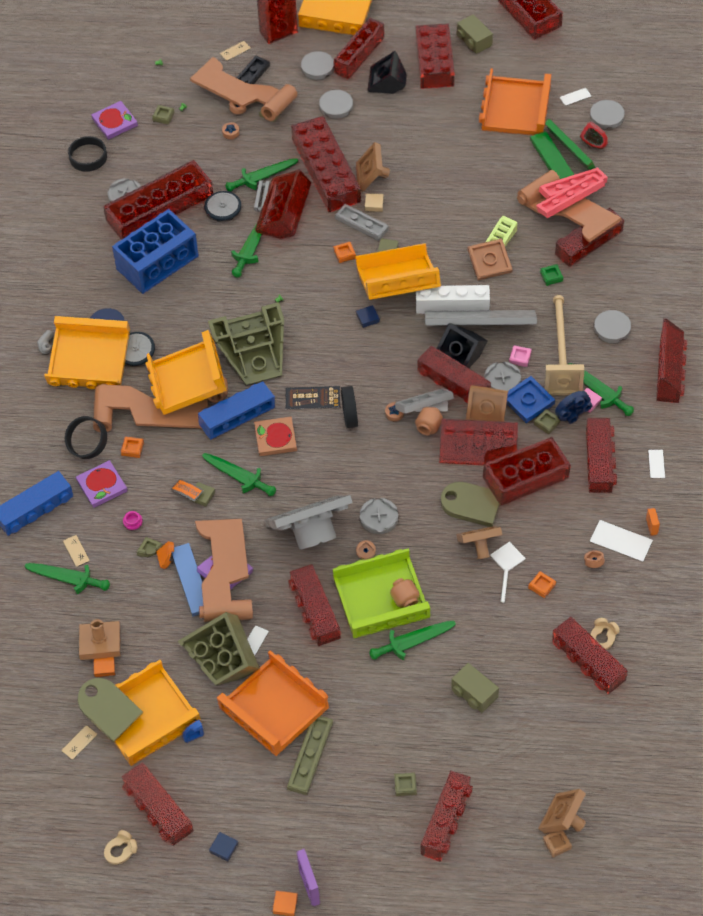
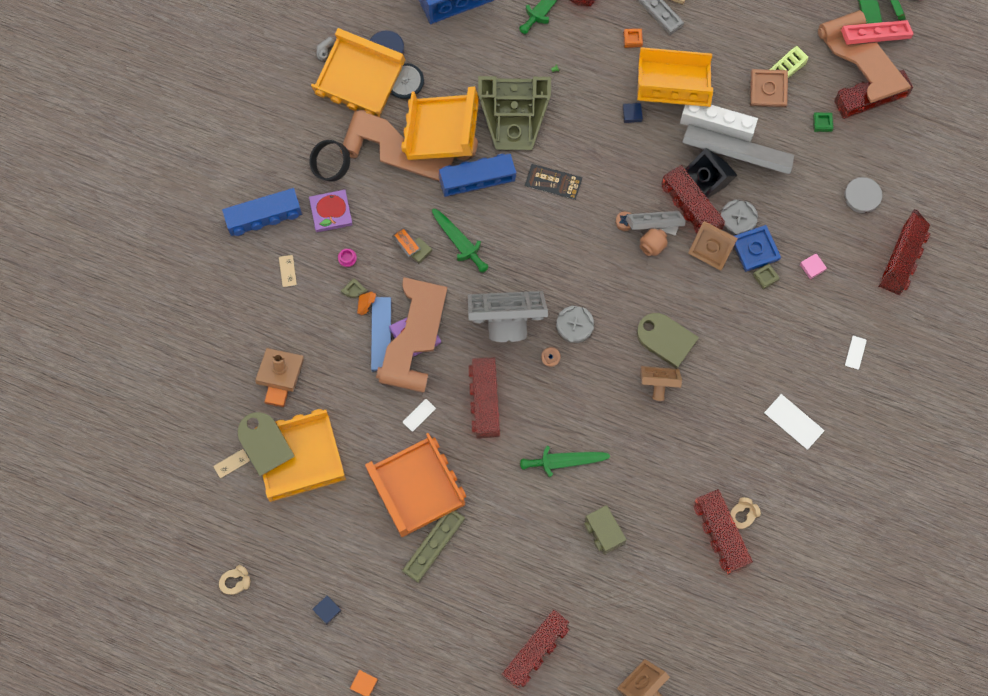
camera: 15 degrees right, 15 degrees up
(73, 577) = (274, 296): green sword -> none
(132, 447) = (370, 181): orange tile -> none
(157, 804) = (280, 550): clear red brick -> none
(193, 732) = (335, 488): blue tile -> none
(221, 649) = (385, 417): olive wedge -> none
(275, 436) = (505, 211): tile -> none
(308, 877) = (390, 670): medium lavender tile -> none
(349, 407) = (582, 206): black tyre -> none
(366, 593) = (550, 405): lime panel -> none
(386, 244) = (676, 43): olive tile -> none
(404, 593) = (571, 414): nougat head -> none
(405, 784) = (510, 603): olive tile -> none
(476, 441) = (693, 279): clear red slope -> none
(507, 558) = (681, 405): white piece -> none
(520, 356) = (763, 199): bright pink tile -> none
(526, 471) = (727, 324): clear red brick -> none
(542, 584) = (703, 443): orange tile -> none
(563, 378) = (796, 239): tan tile -> none
(570, 195) = (869, 45): coral plate -> none
(573, 406) = (793, 271): dark blue tile -> none
(594, 559) = (761, 434): nougat tile -> none
(600, 455) = (803, 328): clear red brick -> none
(608, 395) = (834, 267): green sword -> none
(652, 521) = (830, 413): orange tile -> none

